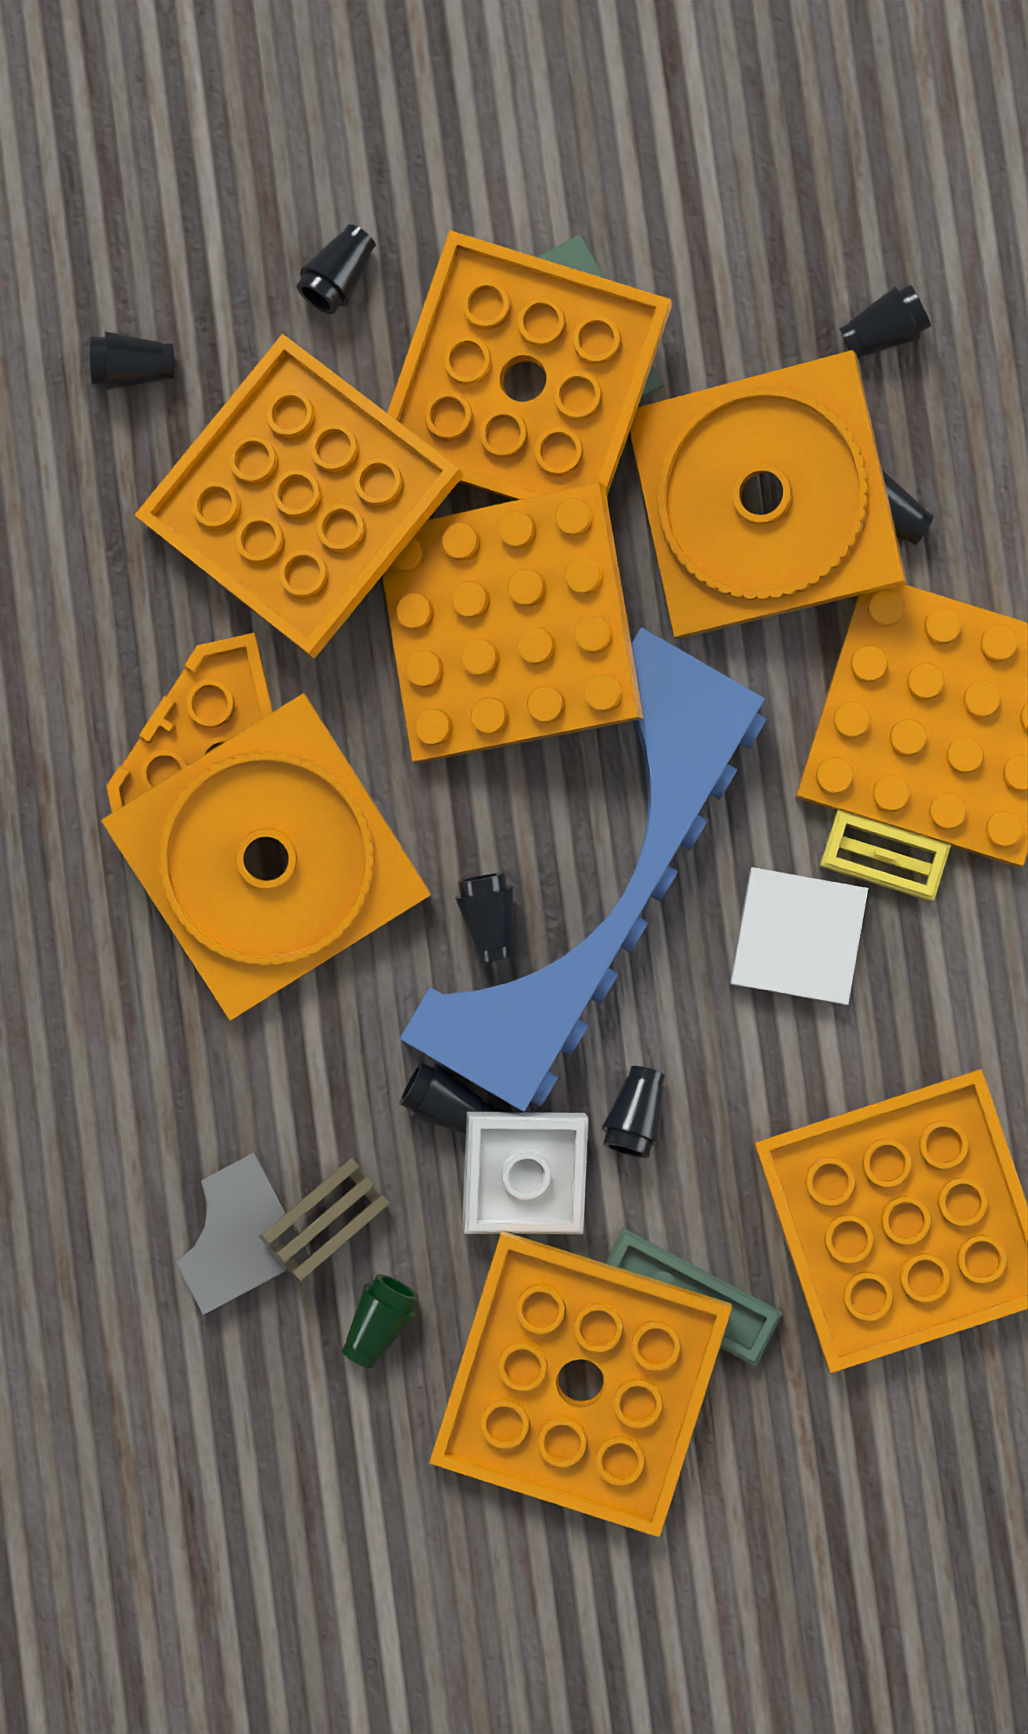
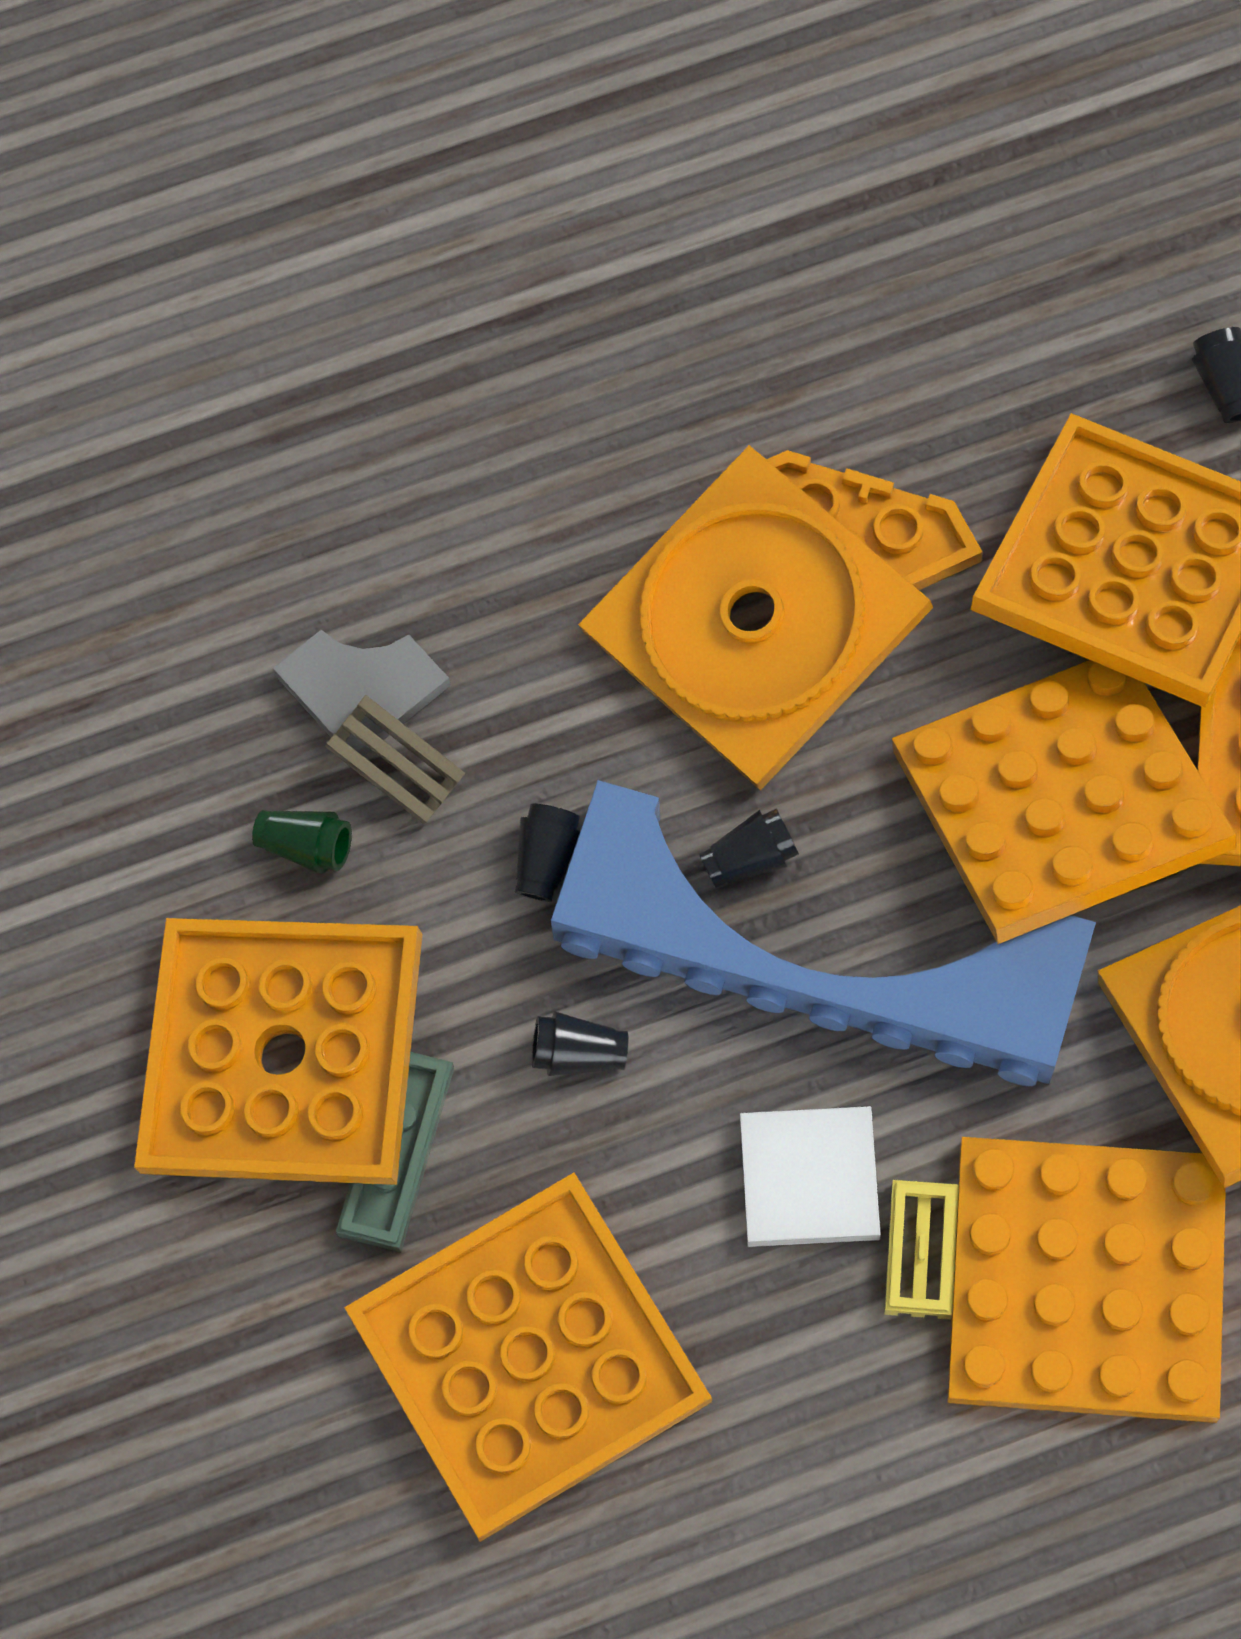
camera: 80 degrees right, 15 degrees down
(525, 1173) = (488, 945): white tile -> none

